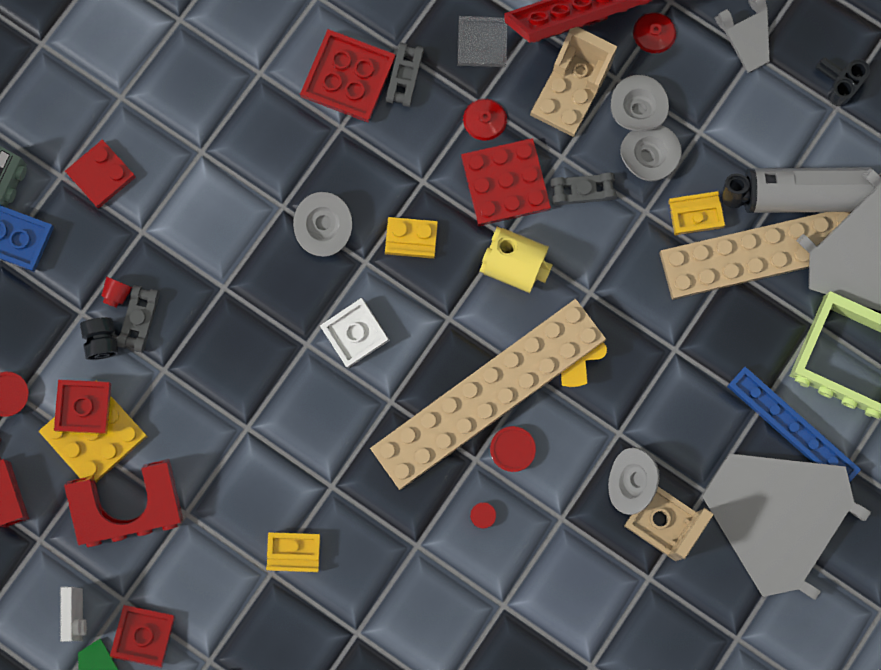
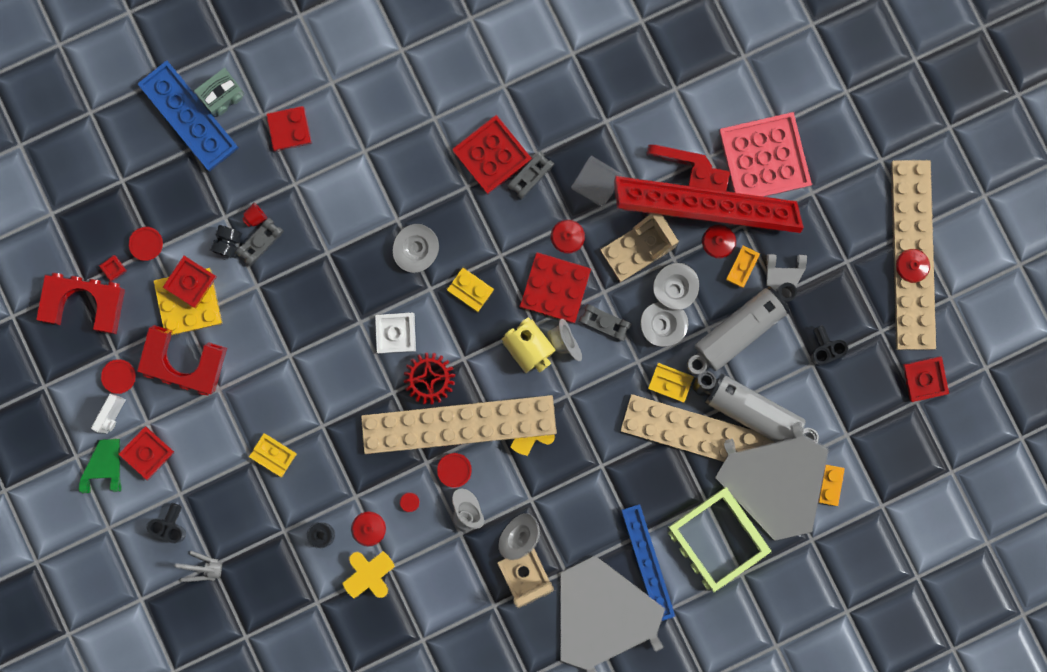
camera: 30 degrees right, 5 degrees up
(58, 565) = (118, 376): none -> red piece
(403, 611) = (321, 535): none -> black wheel
(431, 354) = (427, 361): none -> red gear
(453, 574) = (368, 528): none -> red piece
(485, 625) = (368, 574): none -> yellow piece
(548, 233) = (563, 340): none -> light grey piece
(556, 488) = (467, 511): none -> light grey piece
(698, 43) = (742, 267): none -> light orange plate
(739, 108) = (742, 328): none -> light grey piece

